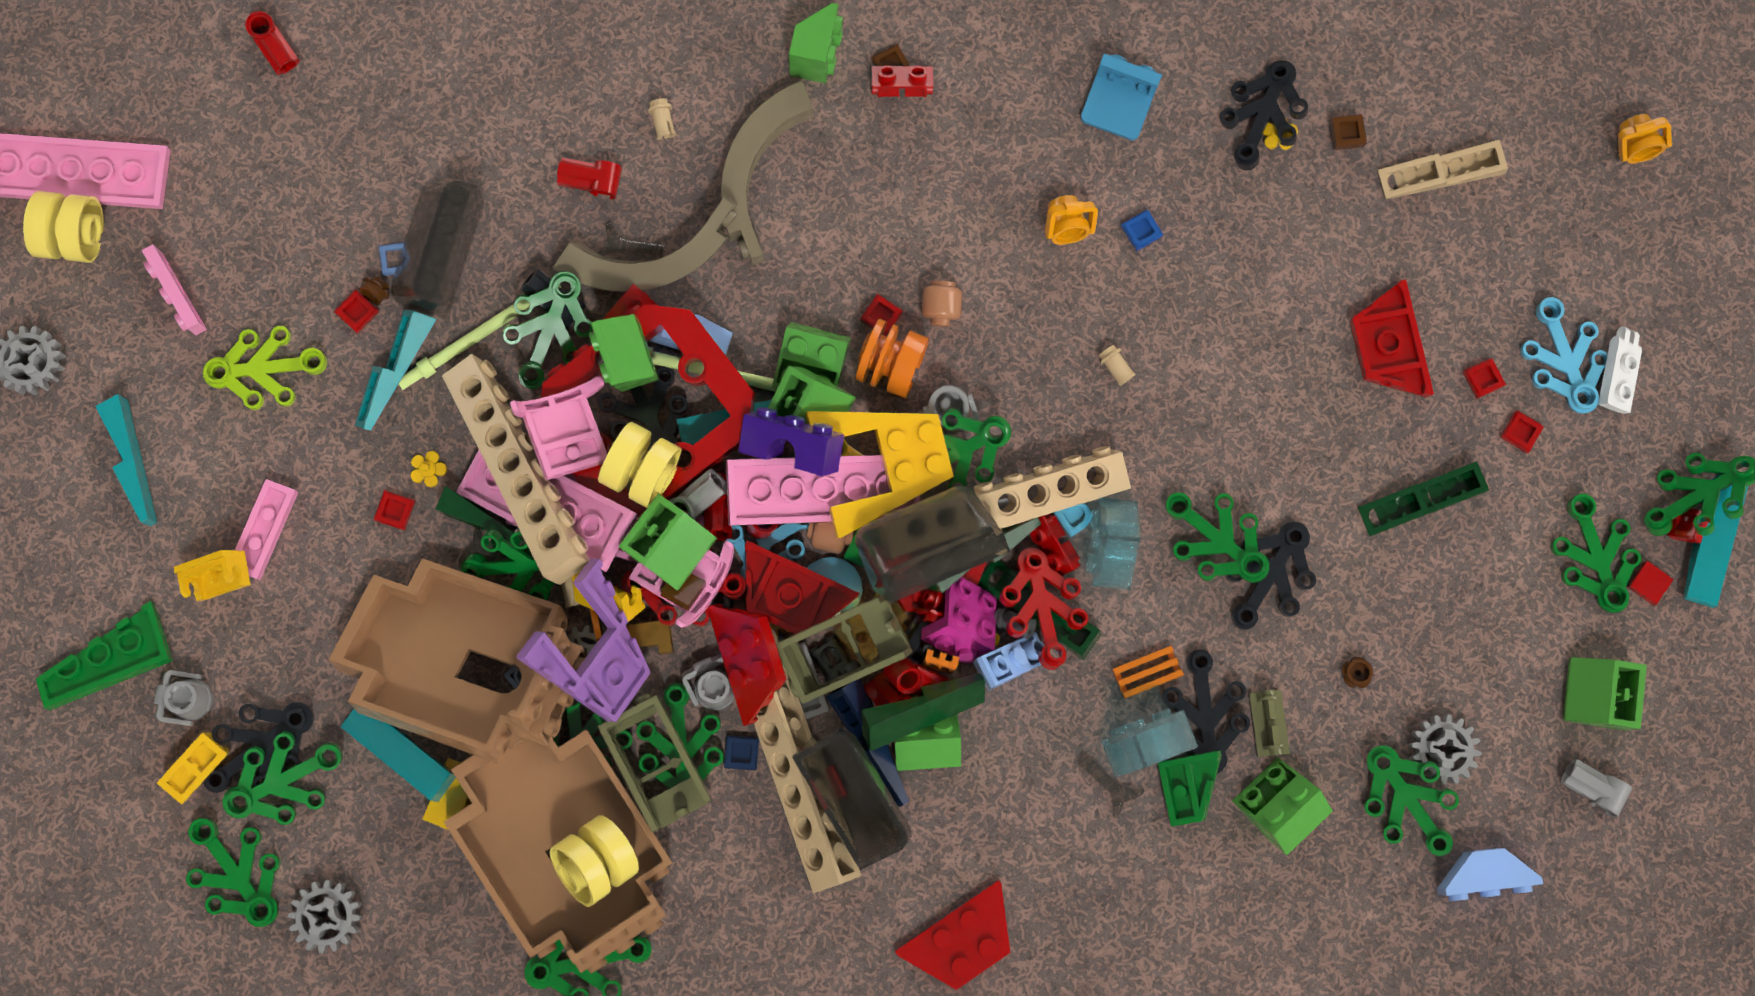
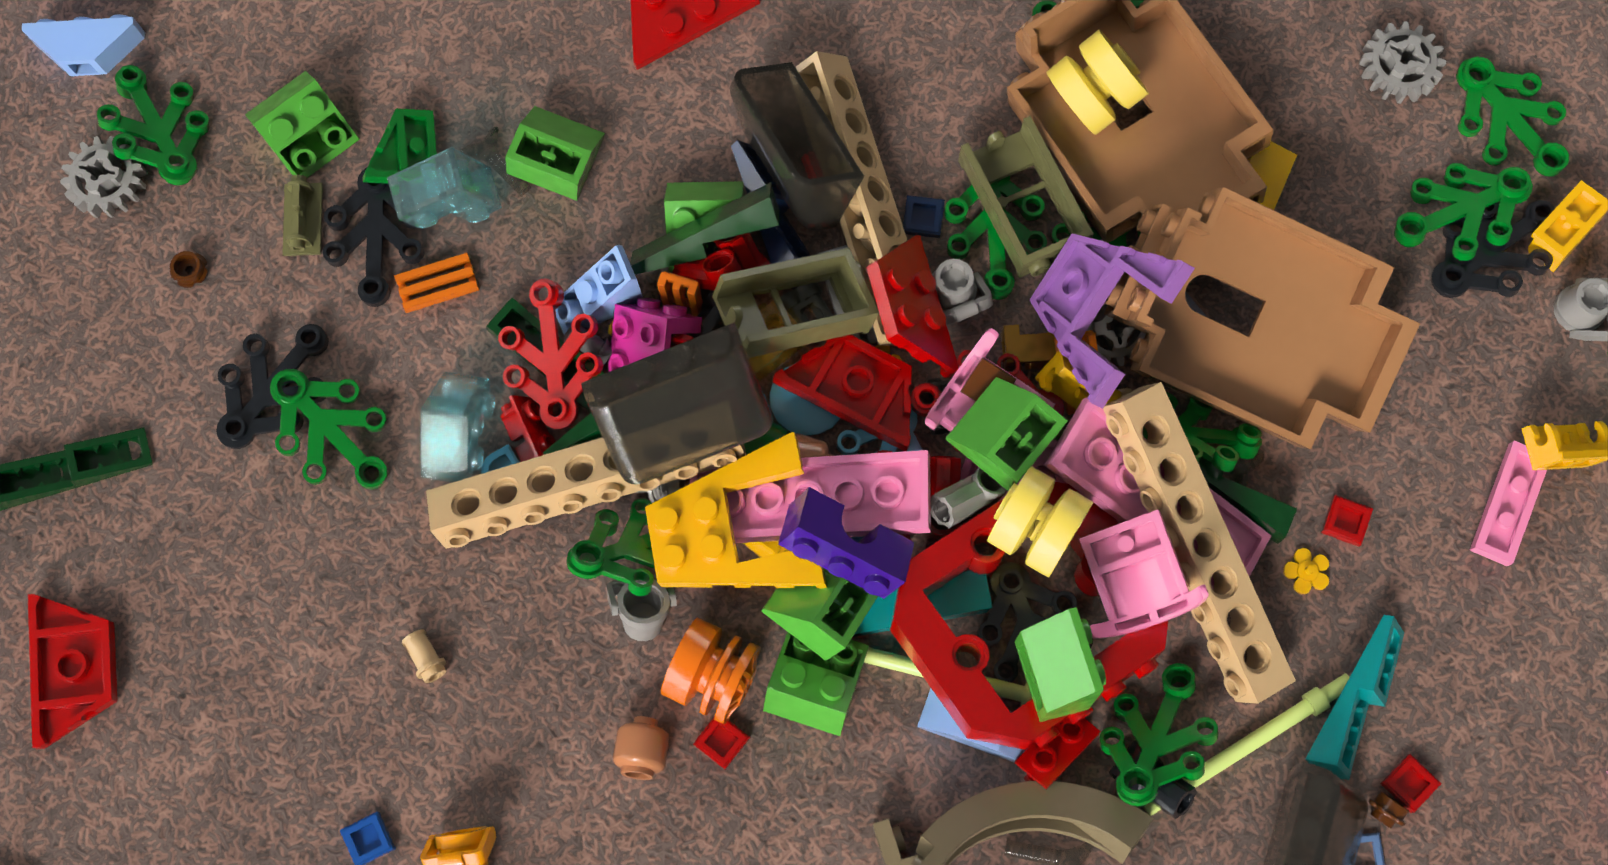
camera: 165 degrees left, 5 degrees down
(260, 367) = (1532, 711): lime plant -> none
(401, 754) = (1302, 201): teal slope -> none
(1059, 792) = (553, 152): none -> bright green slope

